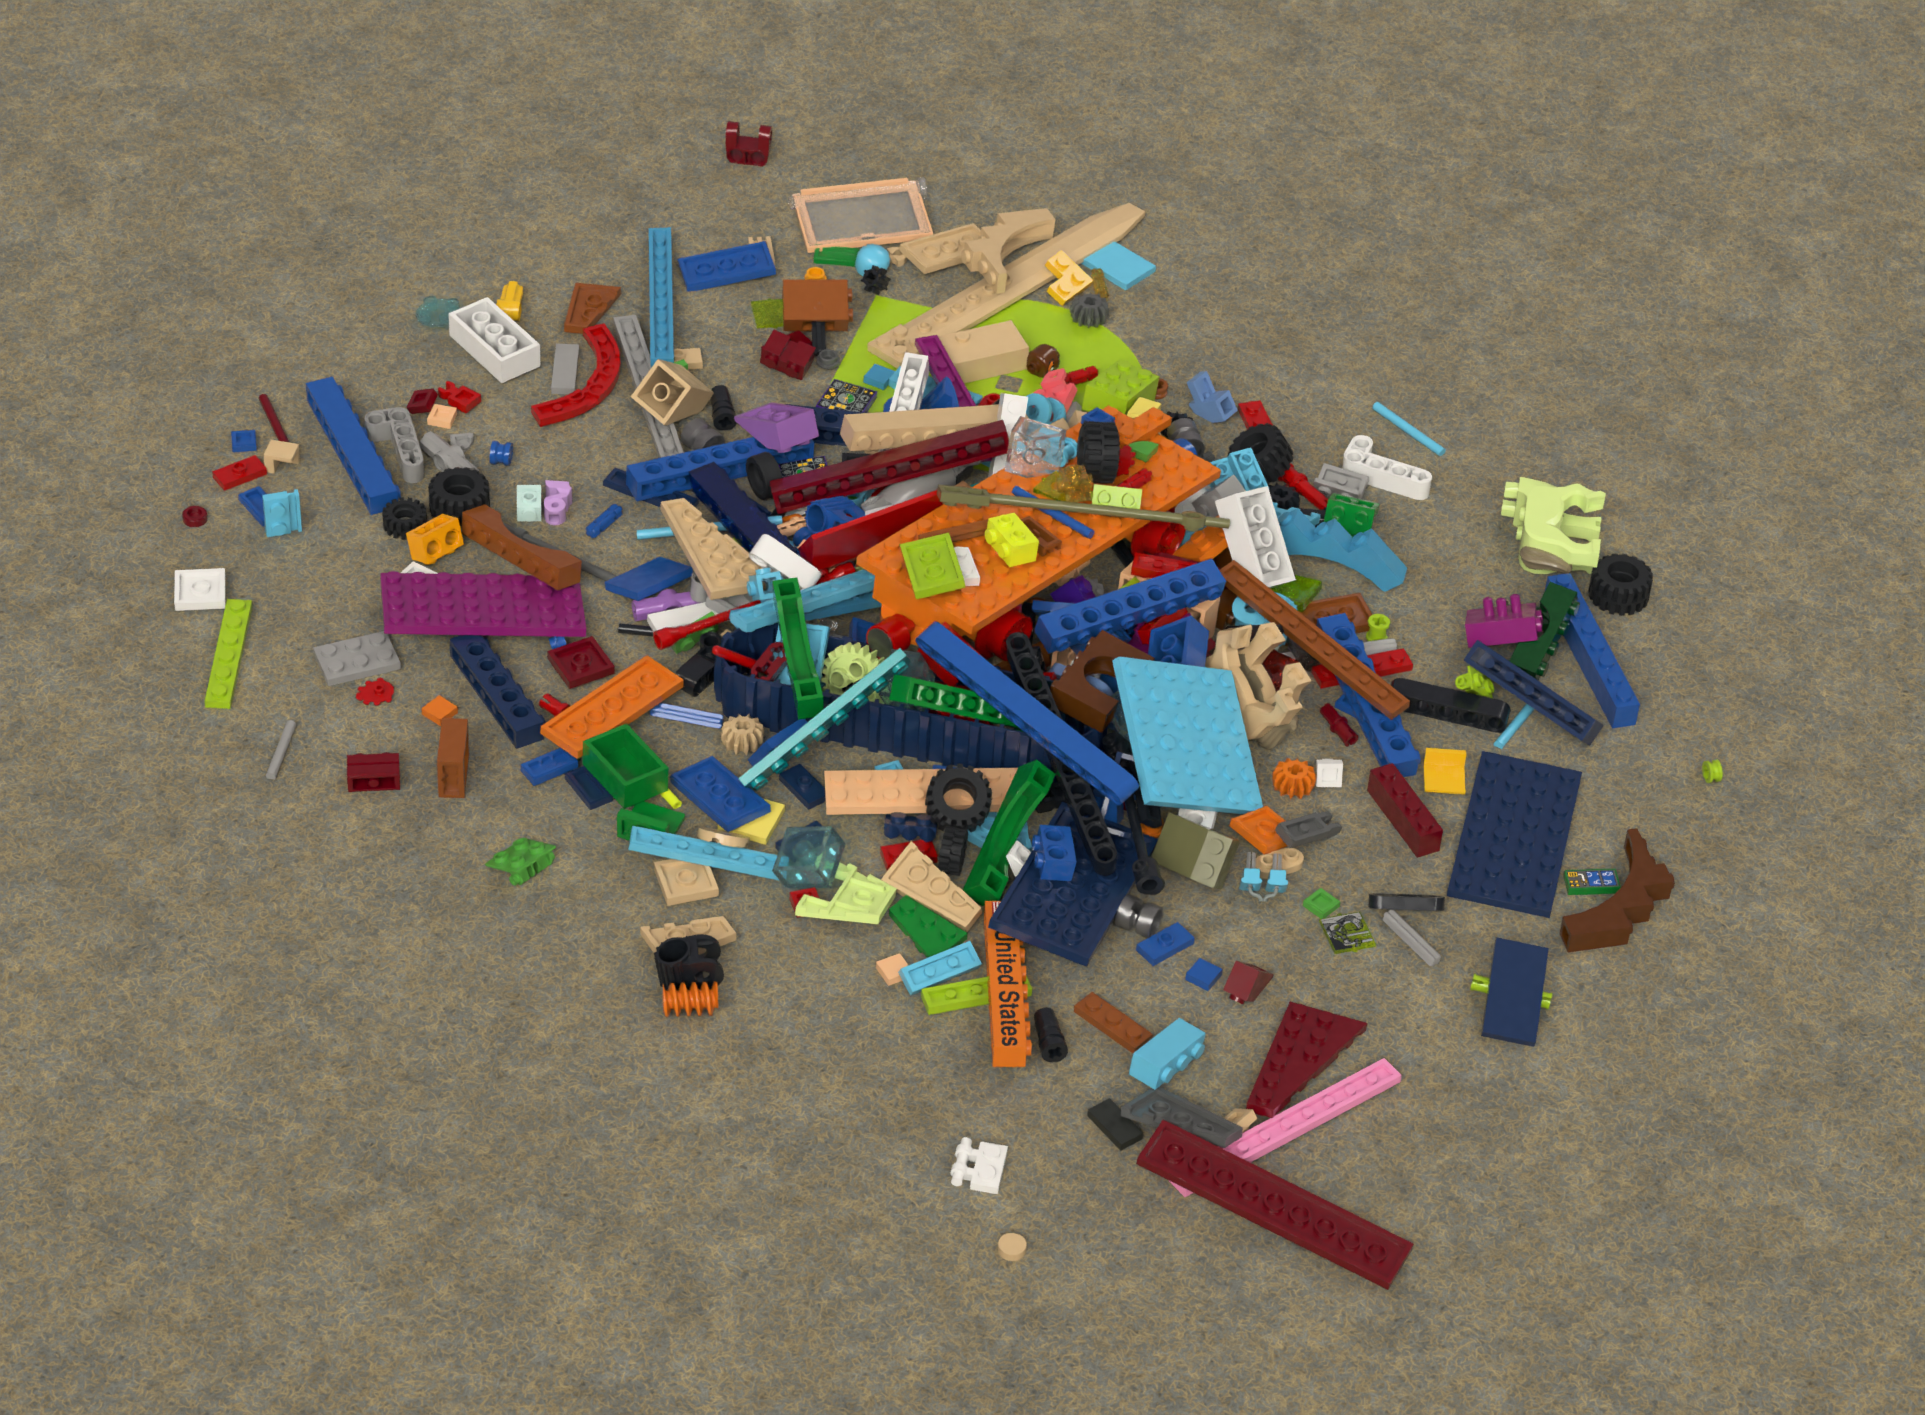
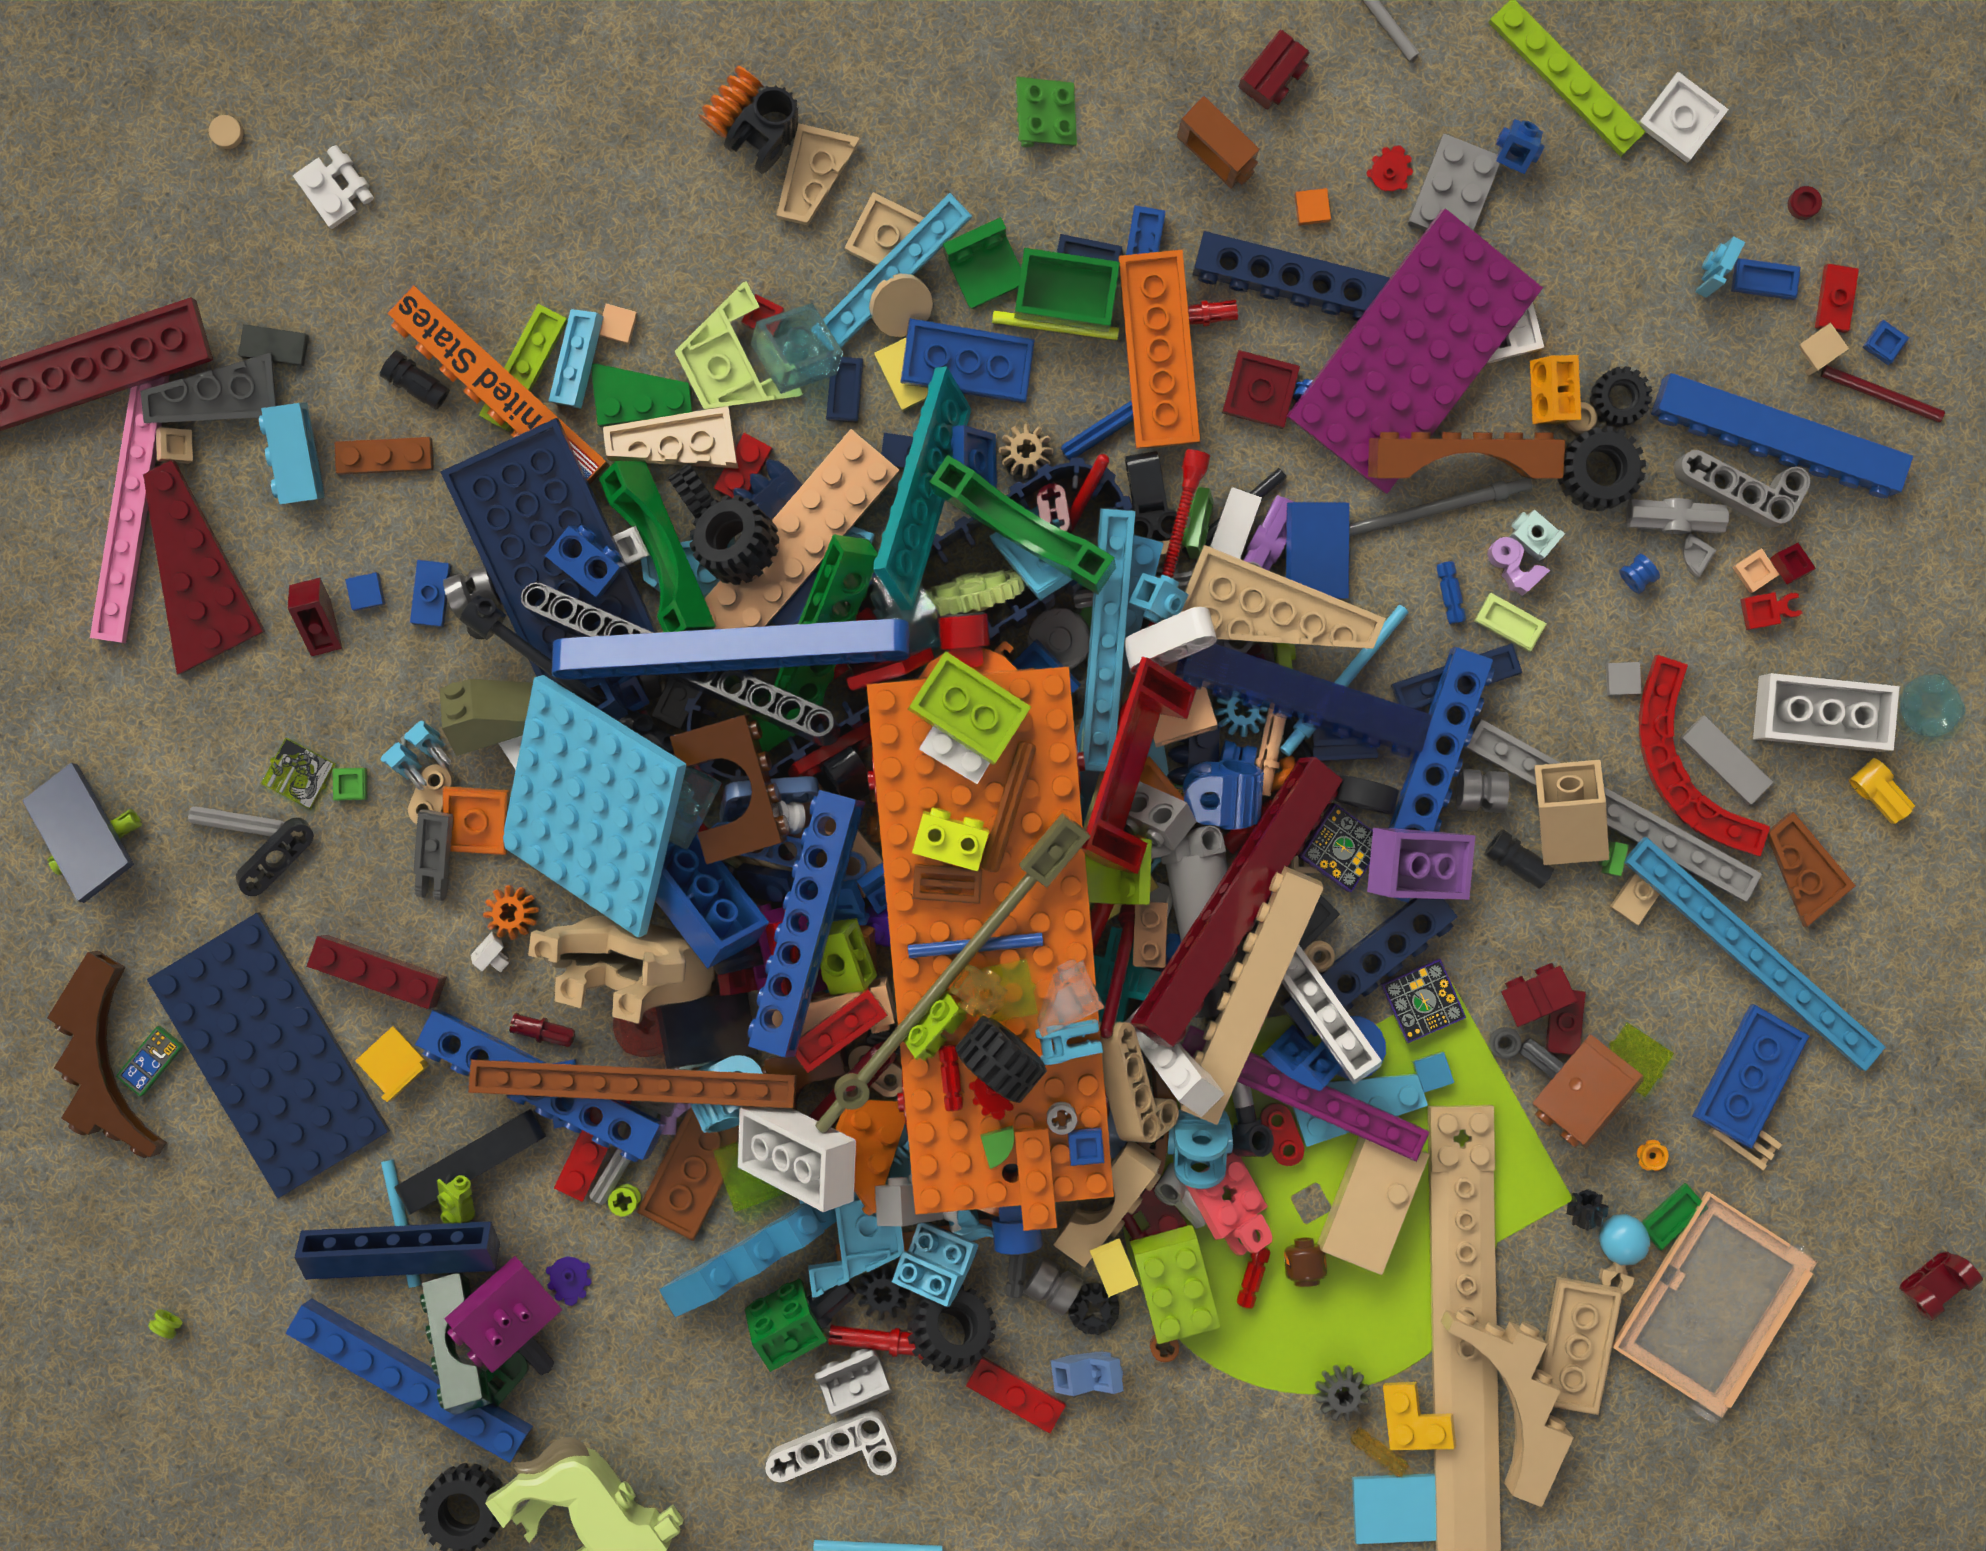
camera: 135 degrees right, 45 degrees up
(300, 637) = (1519, 145): none -> blue brick
(568, 430) = (1623, 678): none -> light grey tile
(591, 490) = (1510, 622): none -> yellowish green tile
(1450, 630) = (568, 1279): none -> dark purple piece

